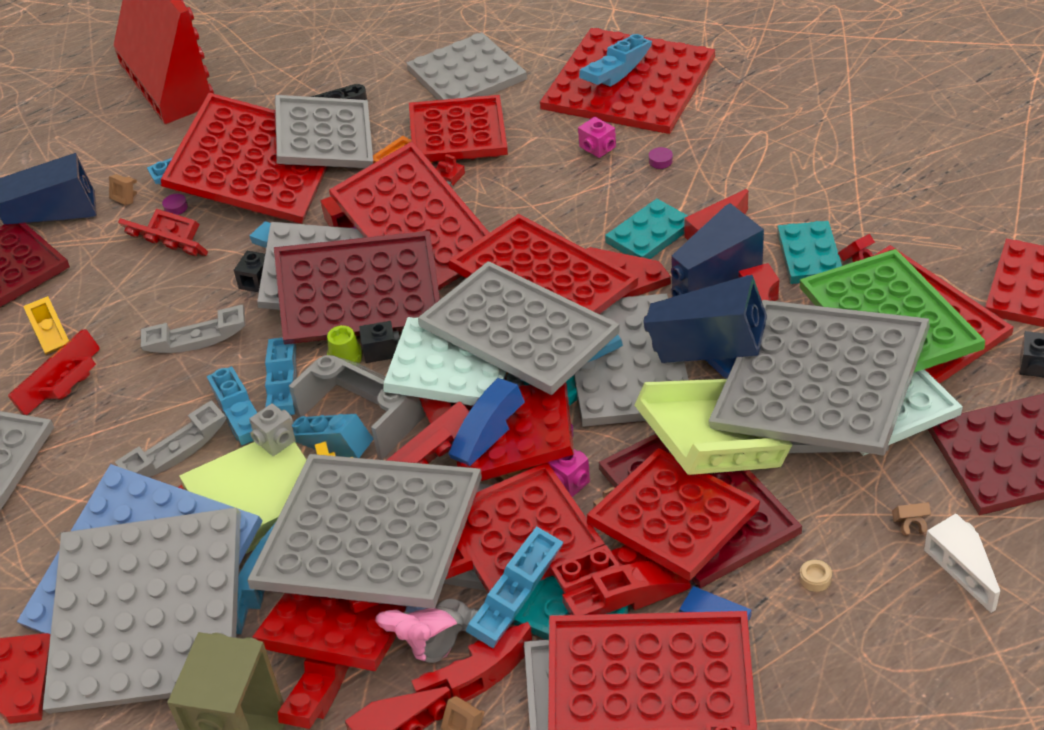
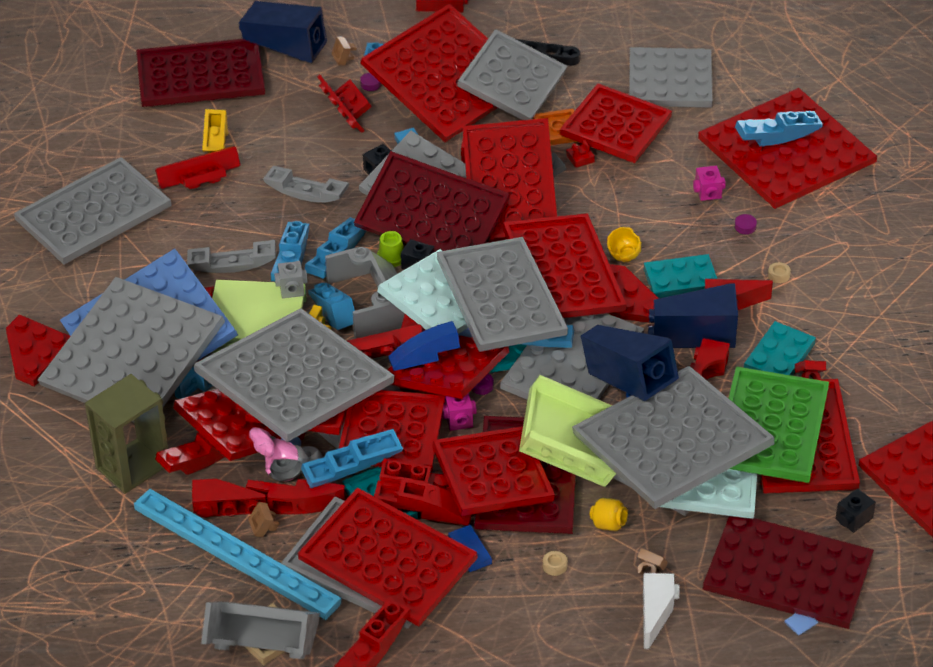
camera: 30 degrees right, 0 degrees up
(574, 226) = (623, 244): none -> yellow hair
(733, 183) = (779, 272): none -> tan tile
(822, 491) = (609, 514): none -> yellow head

